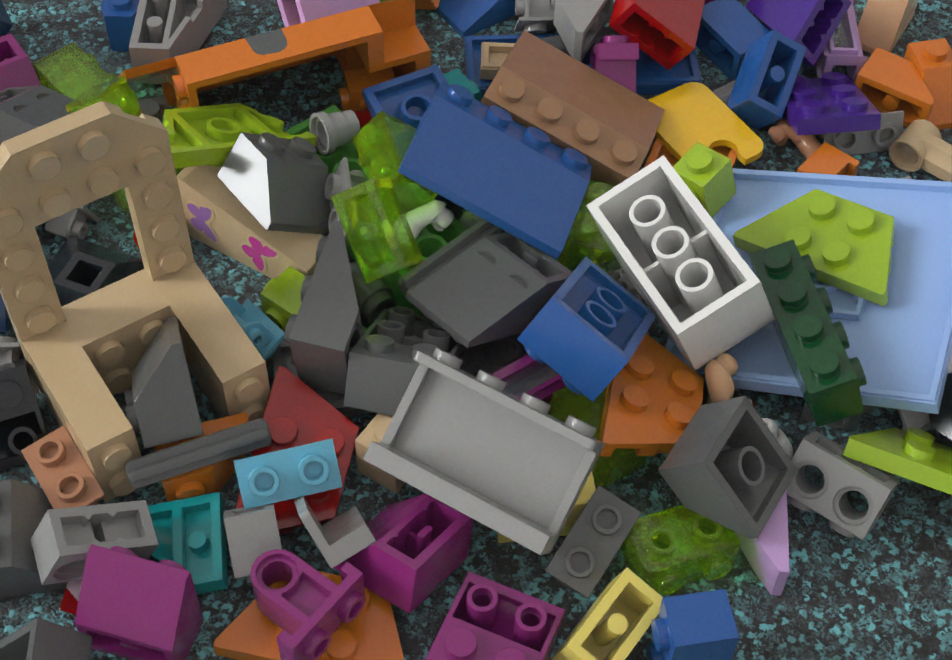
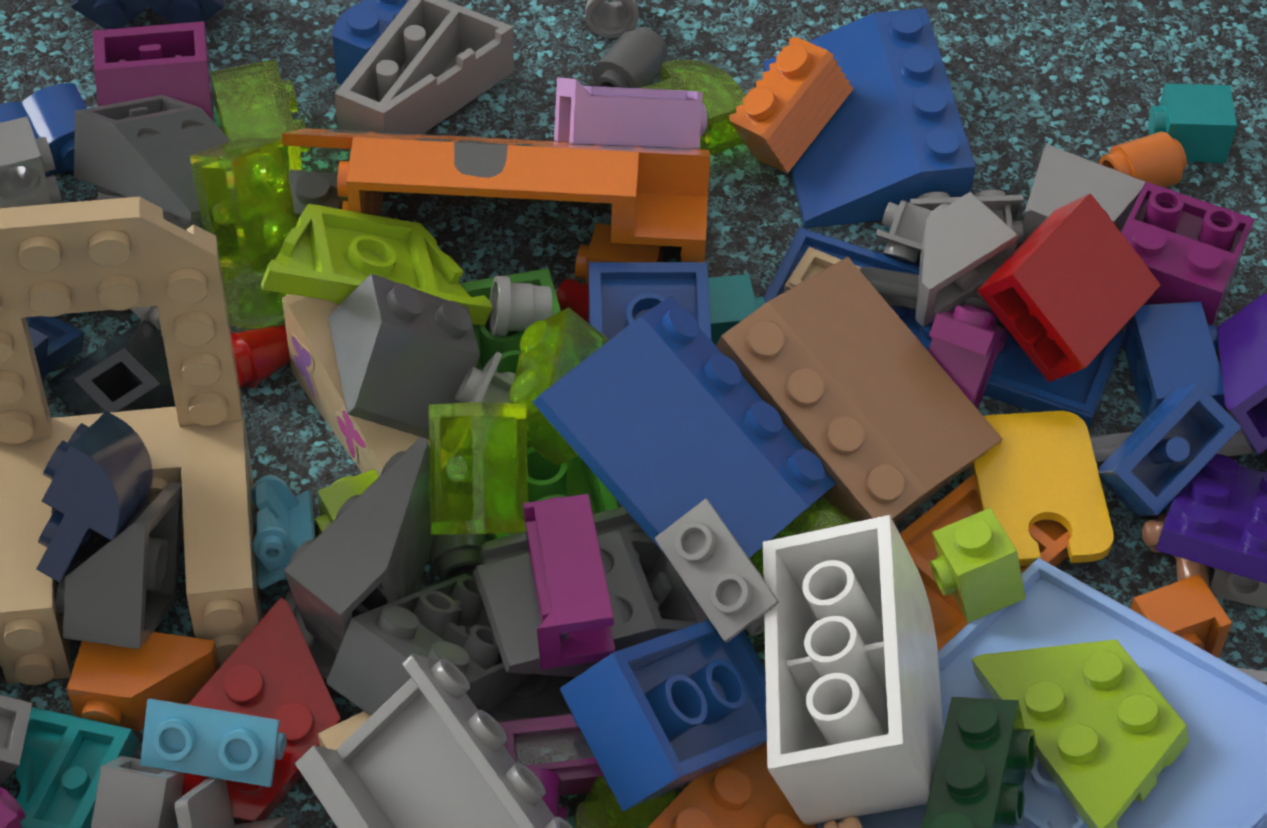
camera: 25 degrees right, 0 degrees up
(125, 337) = (95, 488): none -> dark blue brick
(198, 453) = (124, 670): dark grey axle -> none
(431, 212) = (558, 470): white arm -> none
(481, 272) = (568, 582): none -> magenta window
(571, 232) = (717, 572): none -> light grey hinge

